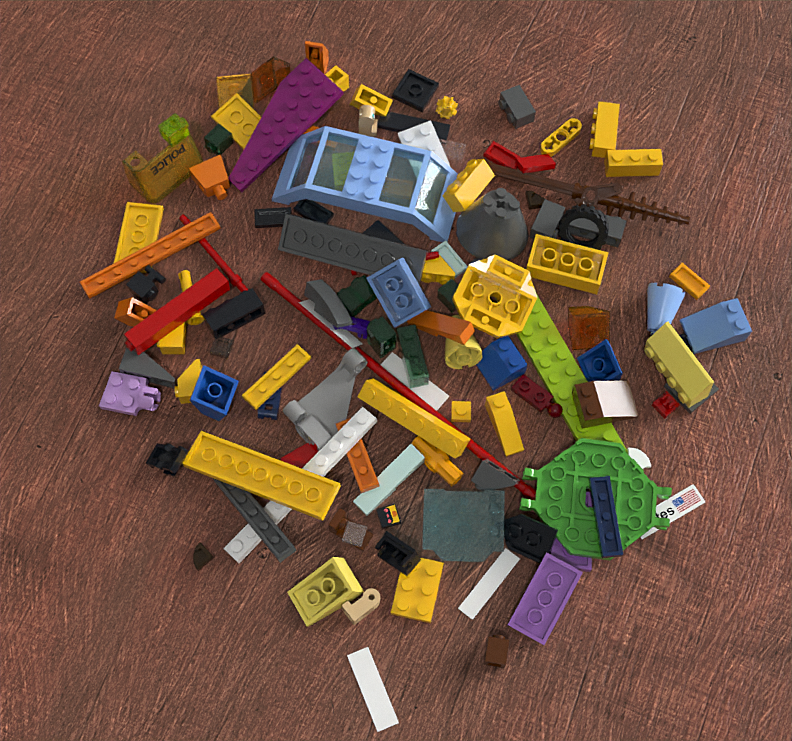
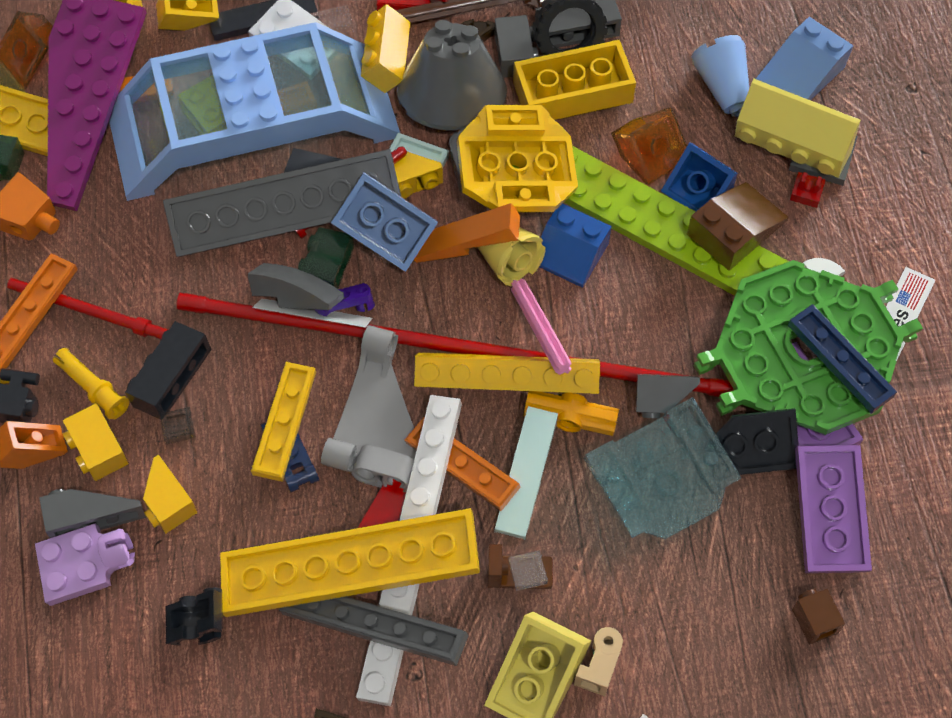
camera: 30 degrees left, 5 degrees down
(176, 312) = (86, 408): red brick -> none
(213, 393) = (210, 489): blue slope -> none
(270, 217) = (140, 220): black tile -> none
(313, 211) = (190, 182): black tile -> none
(367, 121) = (195, 29): tan leg -> none
(381, 337) = (395, 292): clear green brick -> none
(388, 516) = (555, 522): black tile -> none
(397, 553) = (604, 562): black hinge -> none
(412, 356) = (452, 297): clear green brick -> none
(418, 591) = (657, 595): yellow plate -> none
(429, 393) = (473, 328): white sticker -> none
(446, 294) = (448, 196): clear green brick -> none
(447, 402) = (541, 327): none -> bright pink axle
(460, 411) = (565, 332): yellow plate -> none
(489, 583) = (744, 535): white sticker -> none
(504, 423) = (626, 317): yellow slope -> none
(536, 396) = (644, 263): dark red plate -> none
(689, 281) = (723, 26): light orange tile -> none

